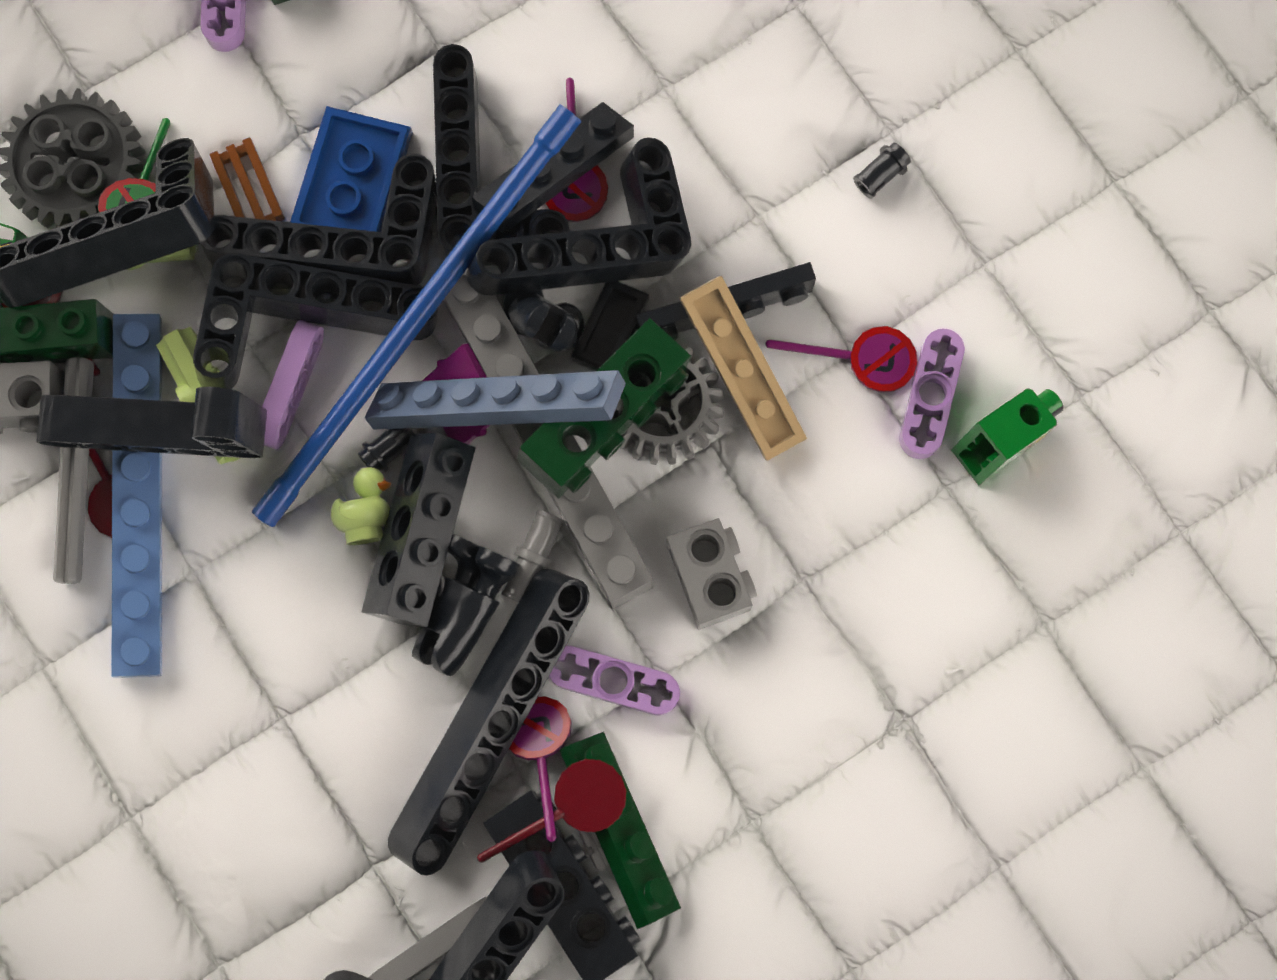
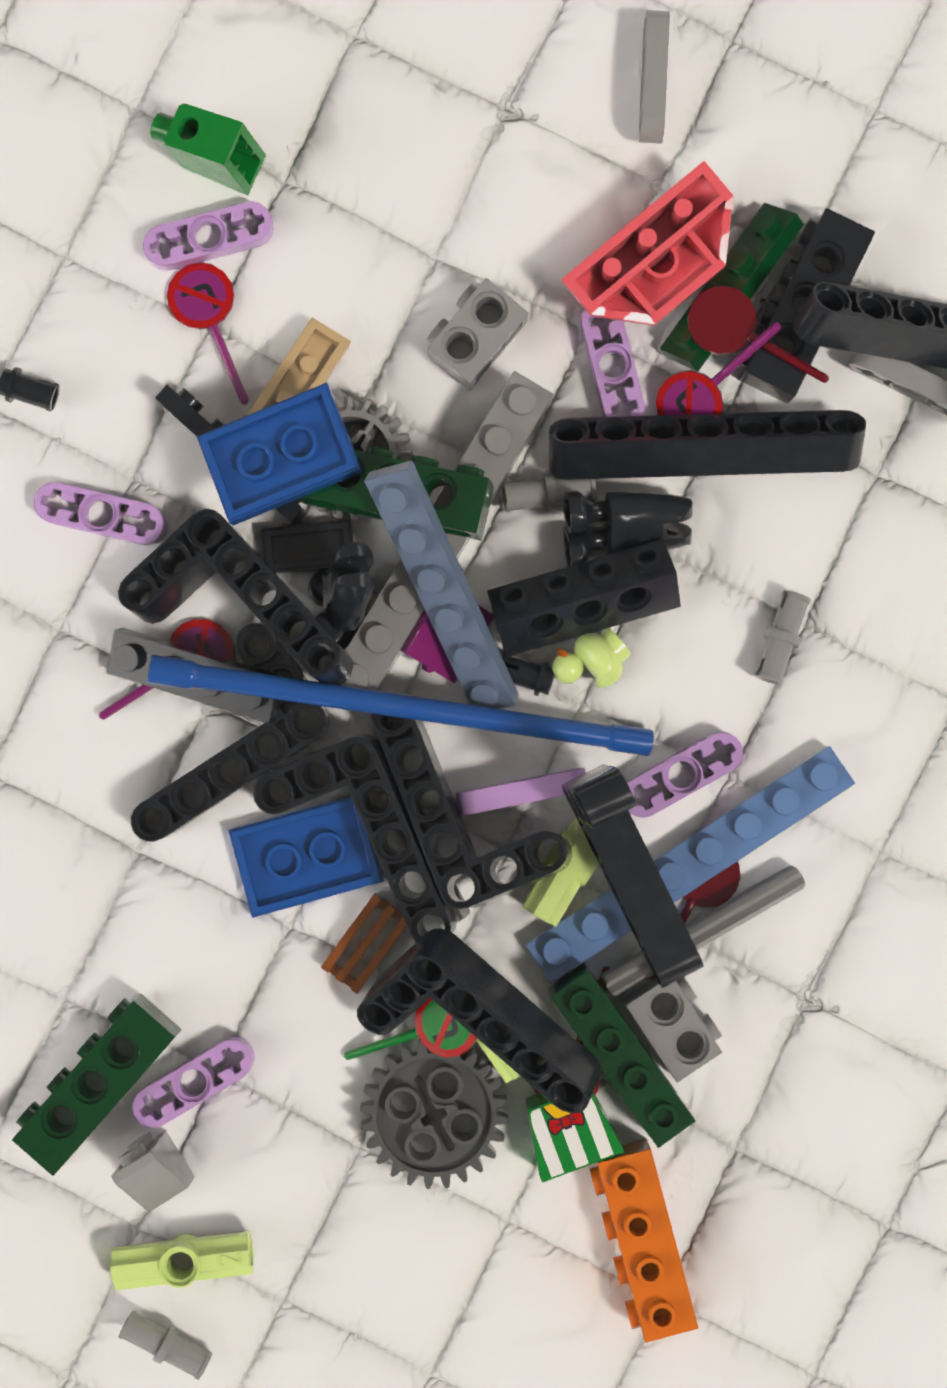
camera: 120 degrees left, 10 degrees up
(205, 564) = (716, 767): none -> lavender beam
(279, 688) = (782, 637): none -> light grey pin
(683, 772) = (659, 254): none -> coral wedge
(691, 325) = (279, 454): none -> blue tile
(753, 140) = (71, 494): none -> lavender beam
(855, 872) = (654, 76): none -> light grey beam

